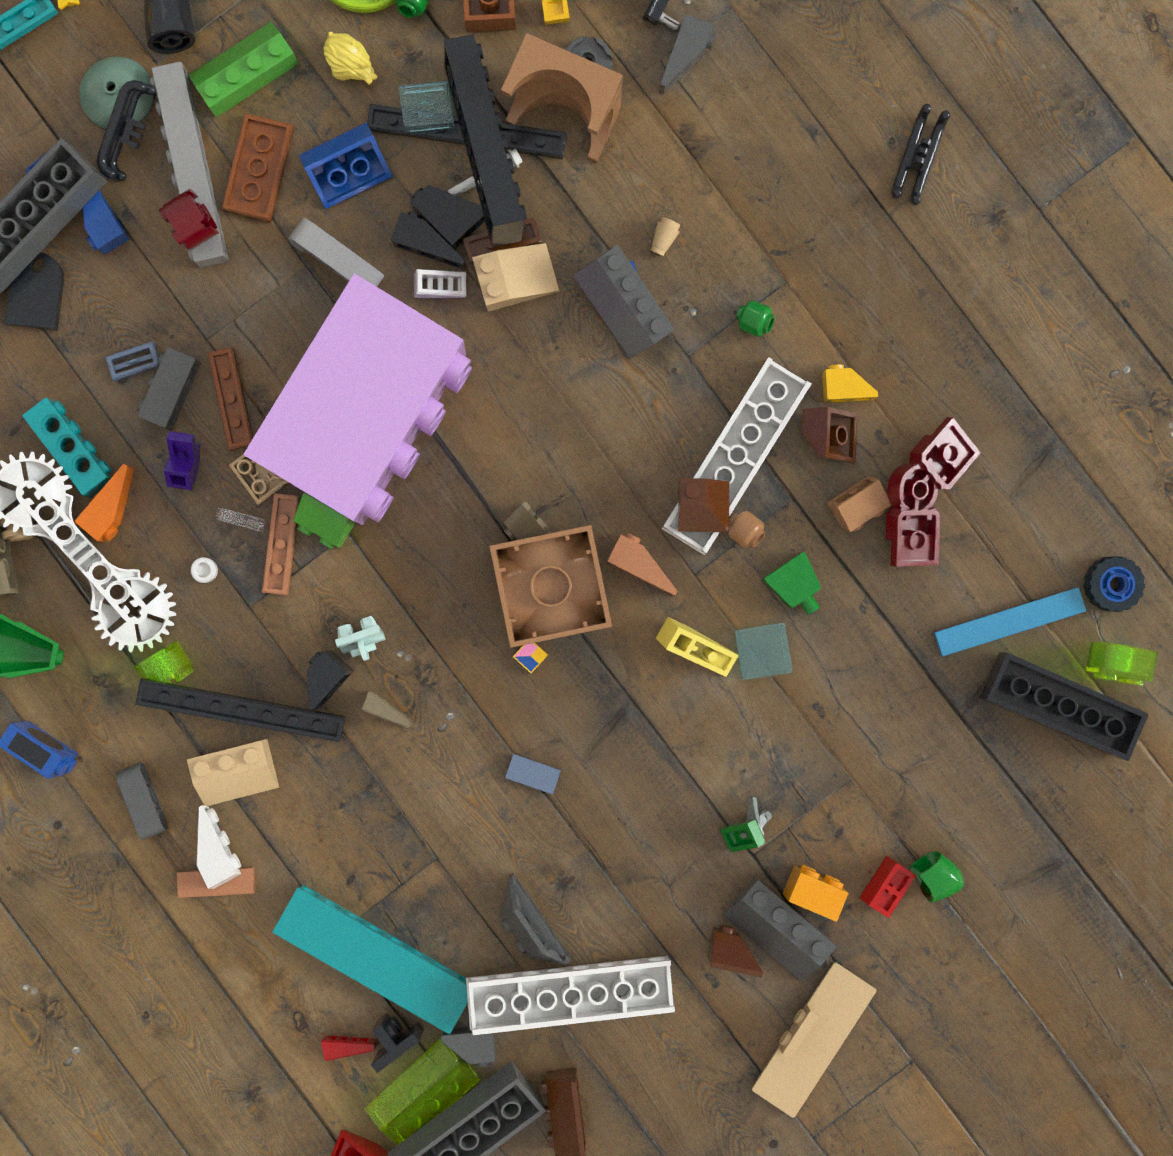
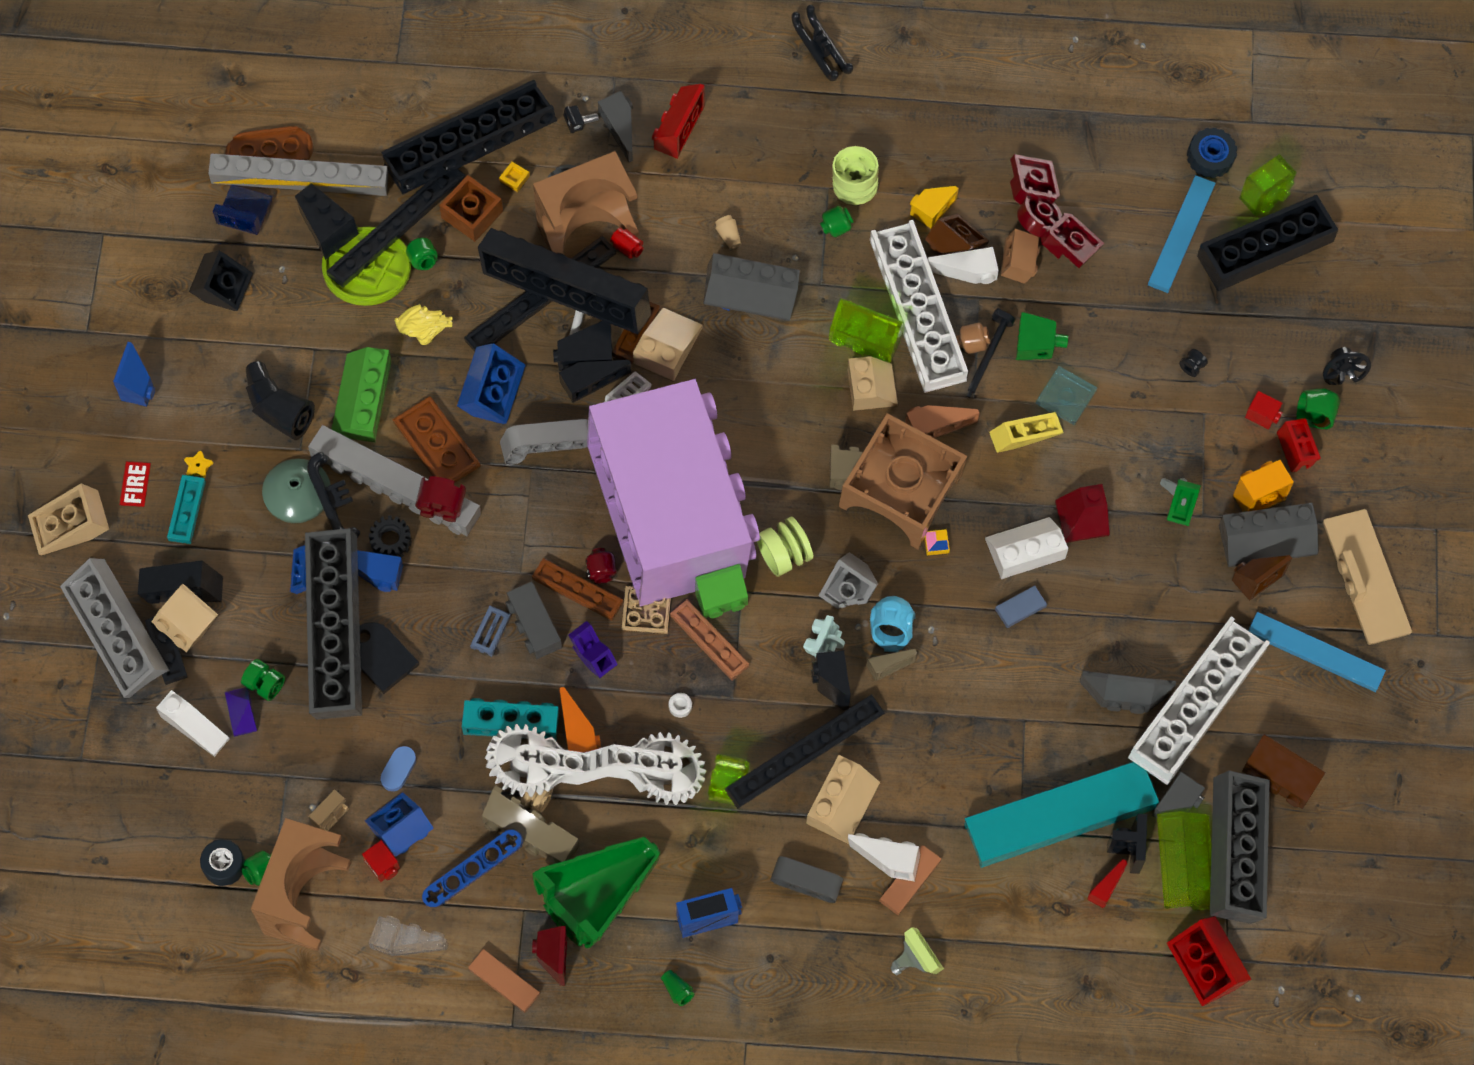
camera: 50 degrees left, 20 degrees down
(128, 197) = (390, 525): none -> black tyre
(154, 943) = (916, 955): none -> yellowish green piece
(240, 519) = (668, 649): clear piece -> none
(262, 399) = (601, 565): none -> dark red head
(407, 537) = (786, 545): none -> yellowish green wheel
(418, 683) = (893, 612): none -> medium azure helmet
(426, 106) = (501, 303): clear light blue tile -> none
(427, 617) = (849, 583): none -> light grey slope
(576, 160) = (627, 243): none -> red brick
(591, 733) = (1027, 547): none -> white slope
(627, 480) = (871, 383): none -> tan slope
(661, 757) = (1083, 514): none -> dark red slope
(666, 434) = (865, 331): none -> clear neon green slope
(703, 505) = (933, 346): reddish brown slope -> none
(706, 1051) = (1317, 652): none -> dark azure tile
(732, 100) = (679, 120): none -> red slope
(788, 541) = (1004, 320): none -> black piece
(816, 472) = (968, 266): none -> white slope
(818, 285) = (855, 175): none -> yellowish green wheel
(888, 734) = (1193, 362): none -> black wheel
(895, 831) = (1264, 410): none -> red brick
(1002, 865) = (1345, 364): none -> black wheel

